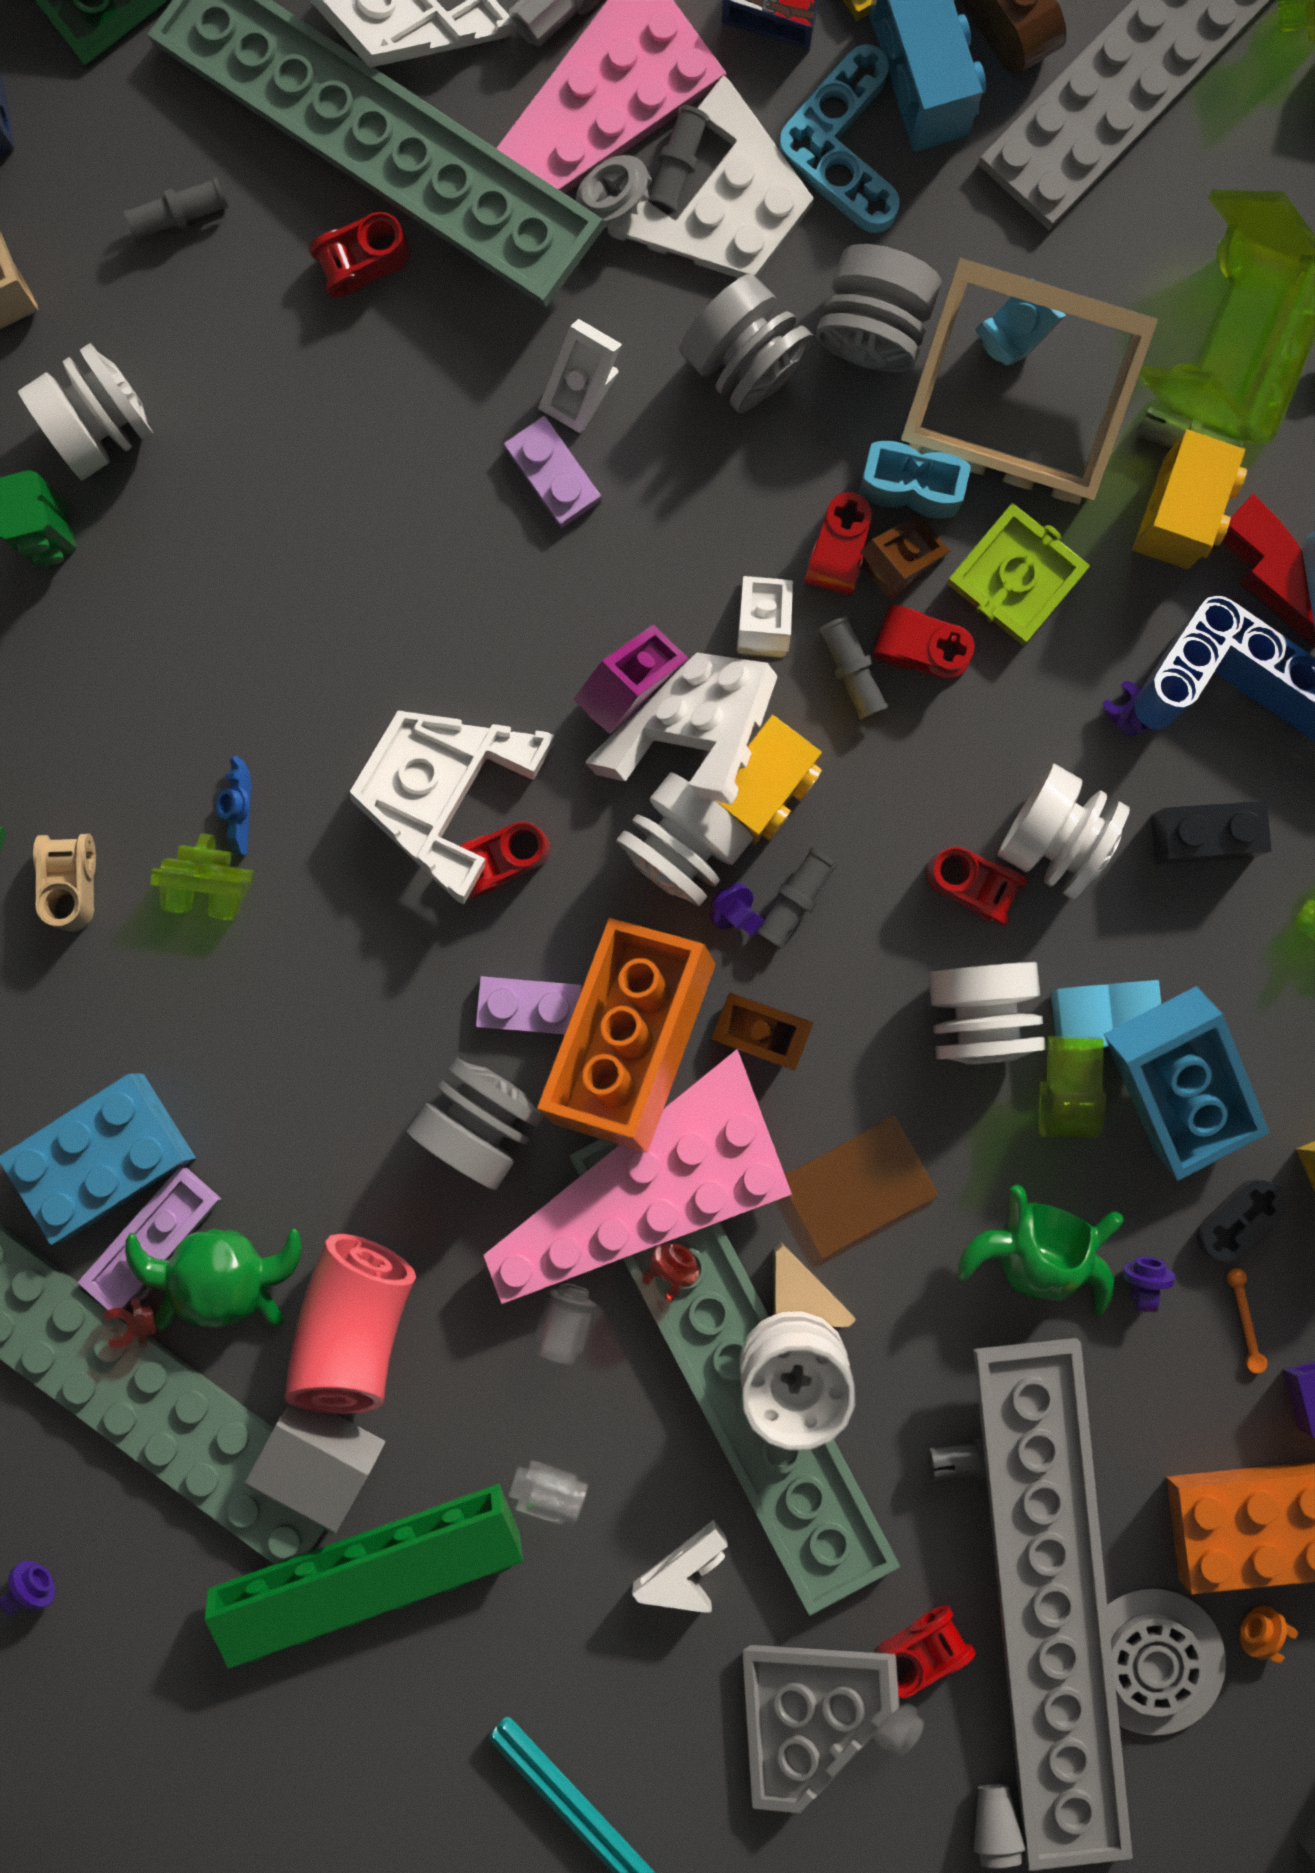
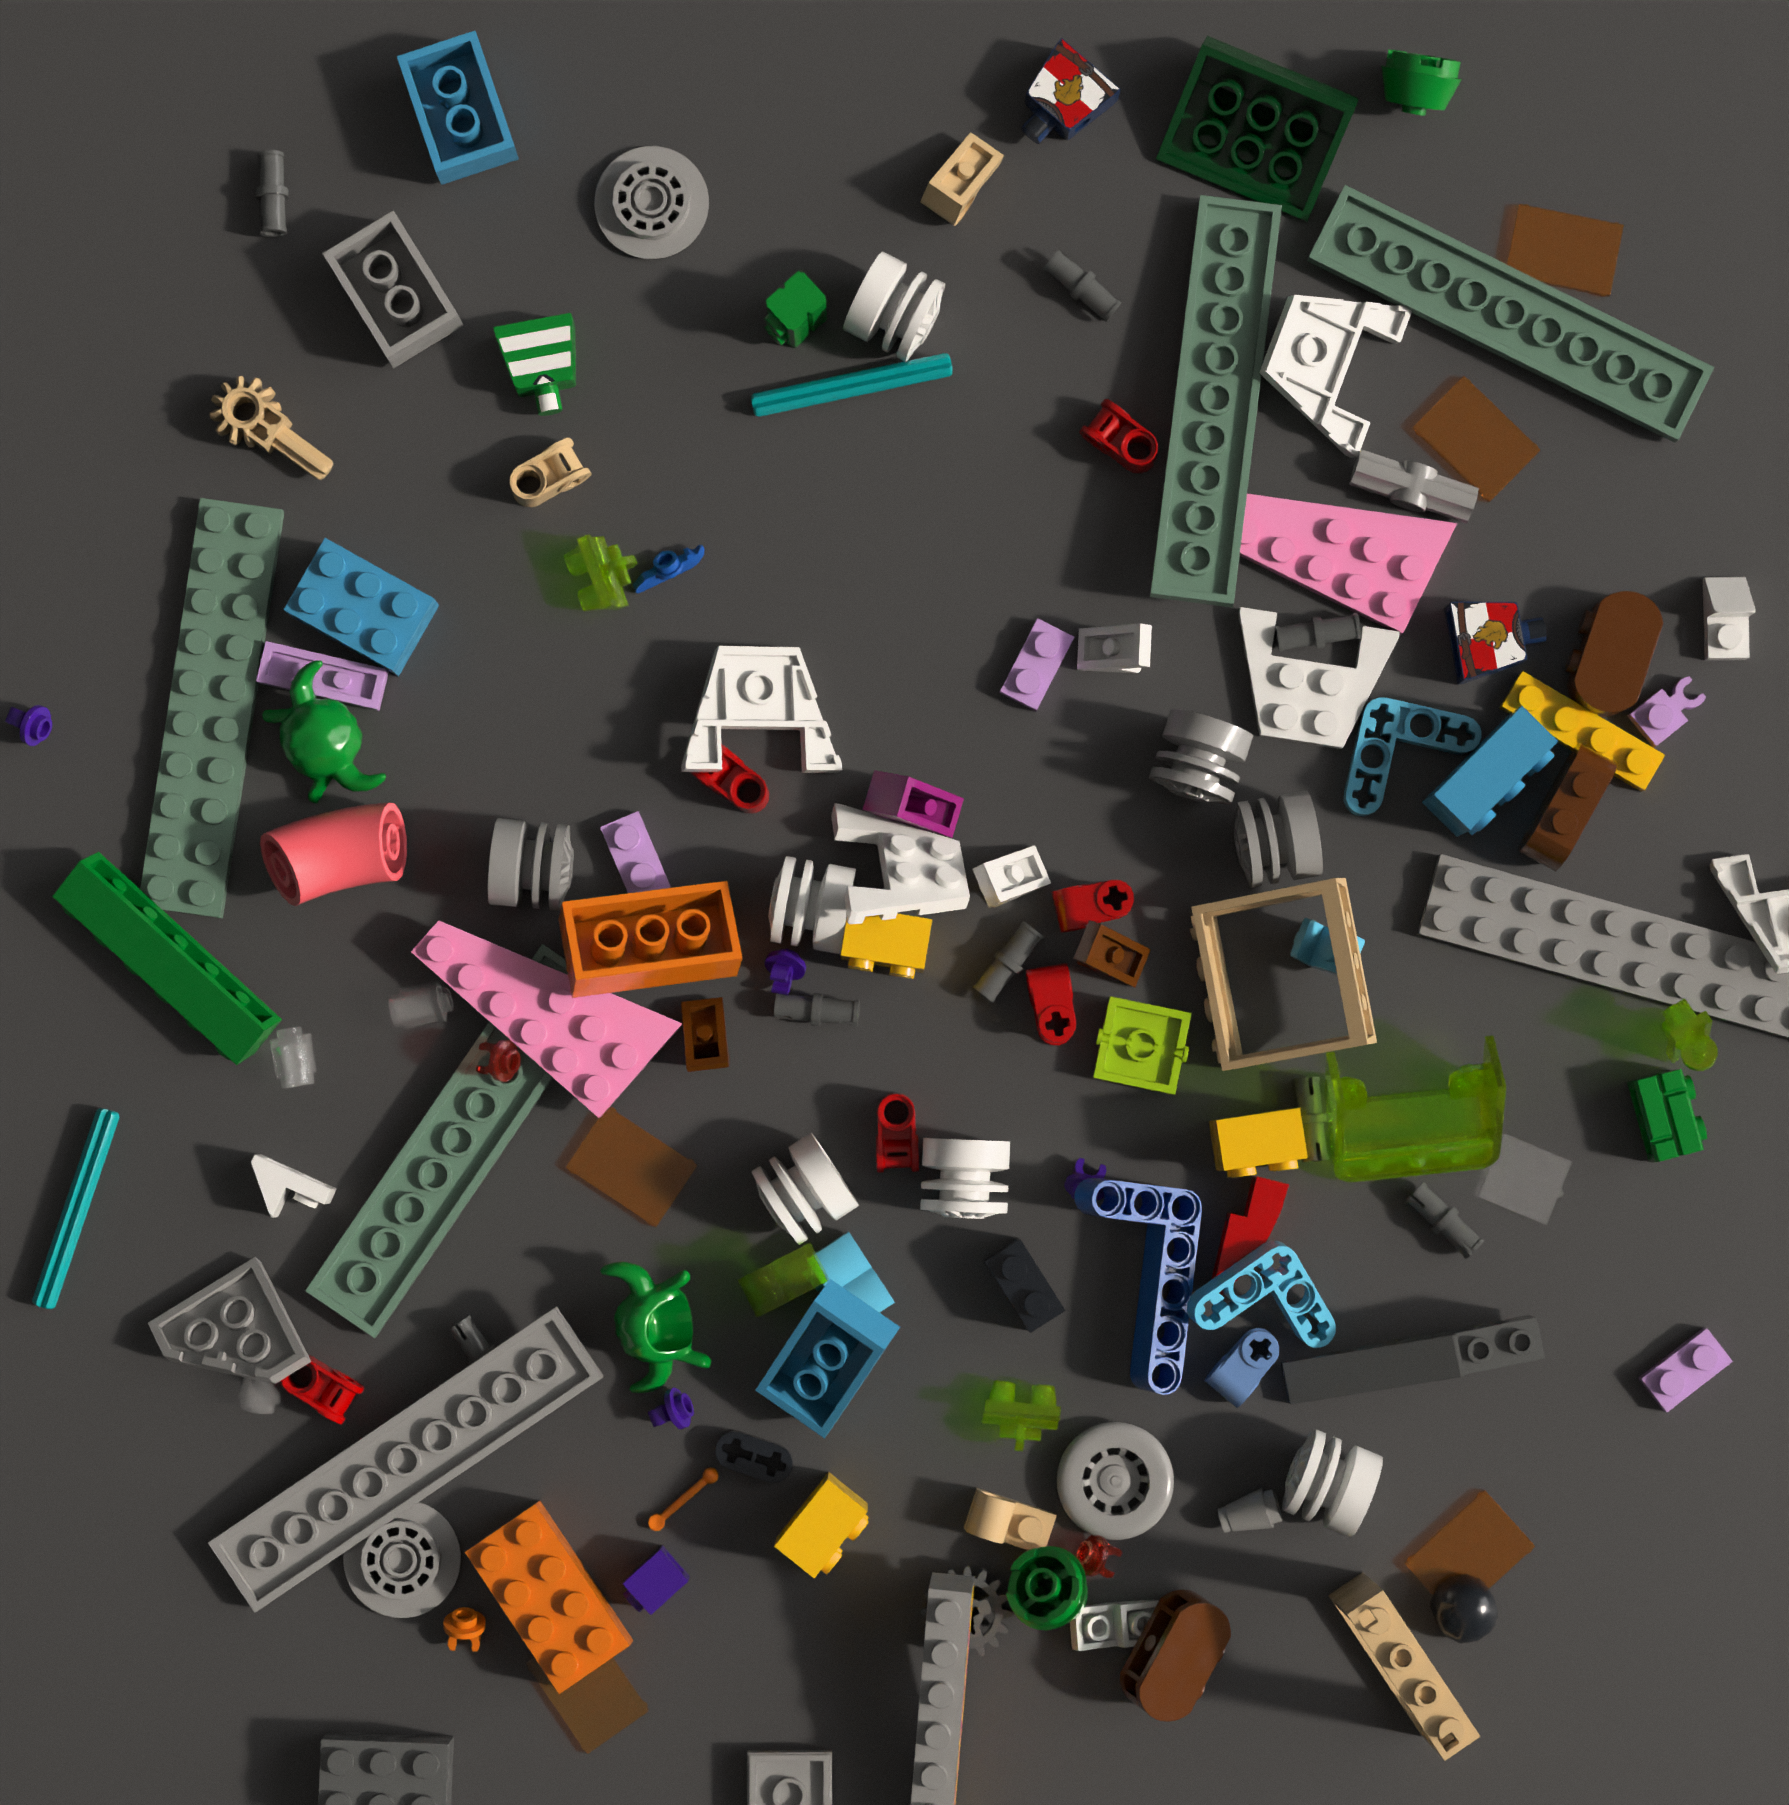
camera: 50 degrees right, 0 degrees up
(138, 1323) = (261, 700): clear red plate -> none
(147, 508) = (851, 384): none -> teal axle
(315, 1465) = (226, 880): light grey slope -> none
(618, 173) = (1256, 585): light grey gear -> none
(799, 1290) = (530, 1165): tan slope -> none
(802, 1406) = (445, 1192): white wheel -> none
(926, 483) = (1164, 920): medium azure brick -> none
(997, 1828) = (225, 1505): light grey cone -> none

